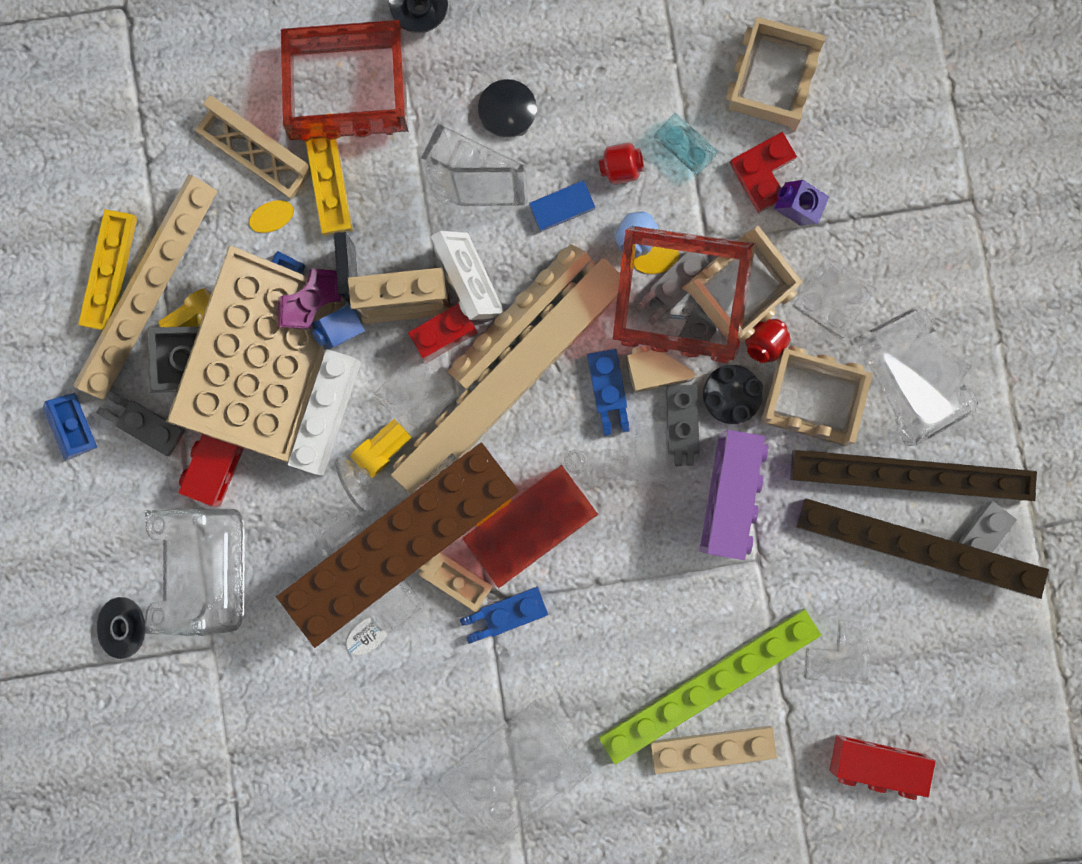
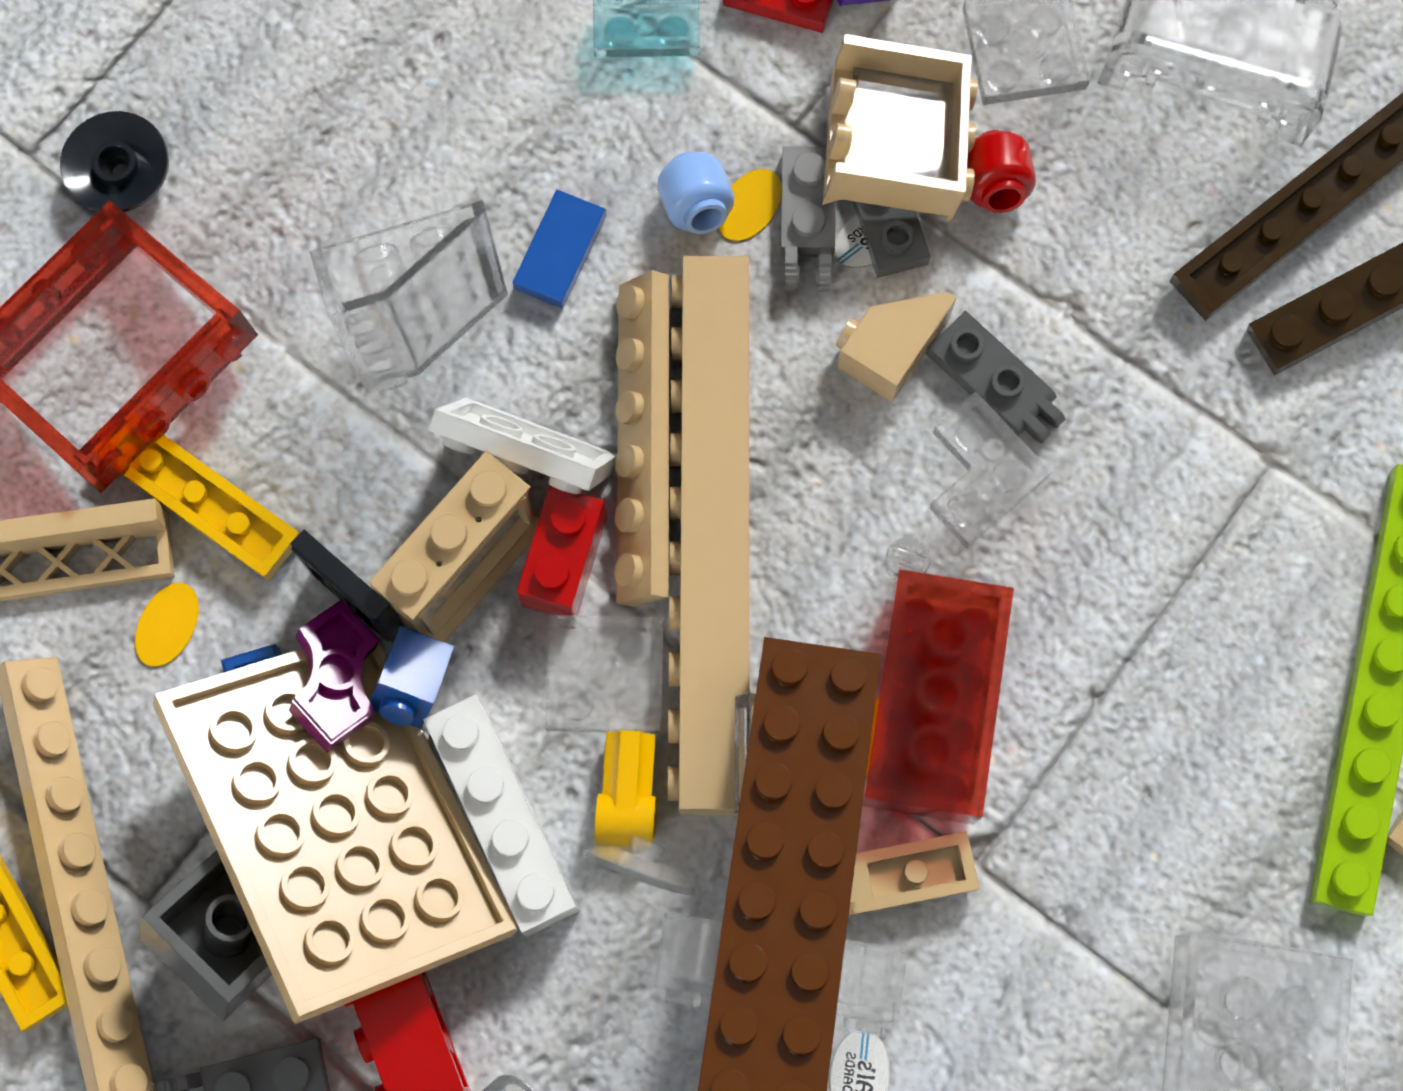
camera: 45 degrees left, 10 degrees down
(190, 313) = (179, 846): yellow piece -> none
(507, 108) = (363, 189): black dish -> none
(507, 614) = (1022, 853): blue hinge -> none
(608, 388) = (856, 425): blue hinge -> none
(621, 163) = (587, 123): red head -> none
(688, 243) = (908, 264): clear red window -> none
(732, 394) = (1022, 280): black dish -> none
(733, 494) = (1158, 400): medium lavender brick -> none
(817, 396) = (1133, 183): window -> none

